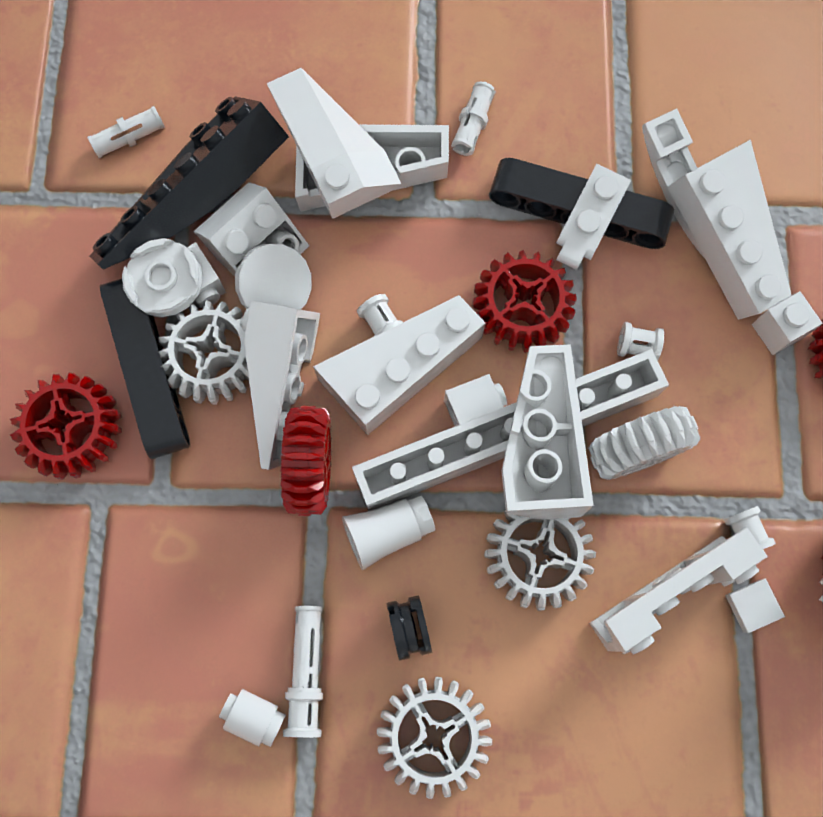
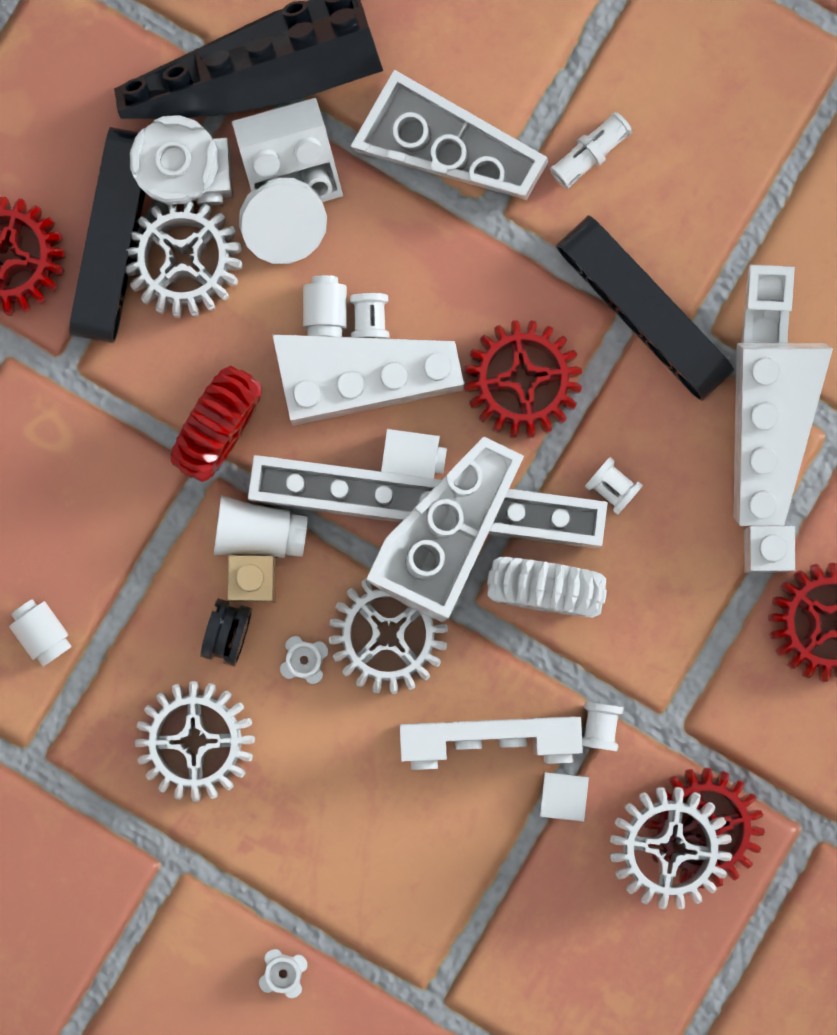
camera: 30 degrees right, 10 degrees up
(275, 348) = (245, 295): white wedge -> none
(304, 694) = (98, 637): white pin -> none
(337, 151) = (415, 117): white wedge -> none
(340, 327) = (324, 306): none -> white brick
(405, 571) = (251, 578): none -> tan brick
(494, 619) = (296, 649): none -> white plate
(591, 216) = (636, 332): white hinge -> none

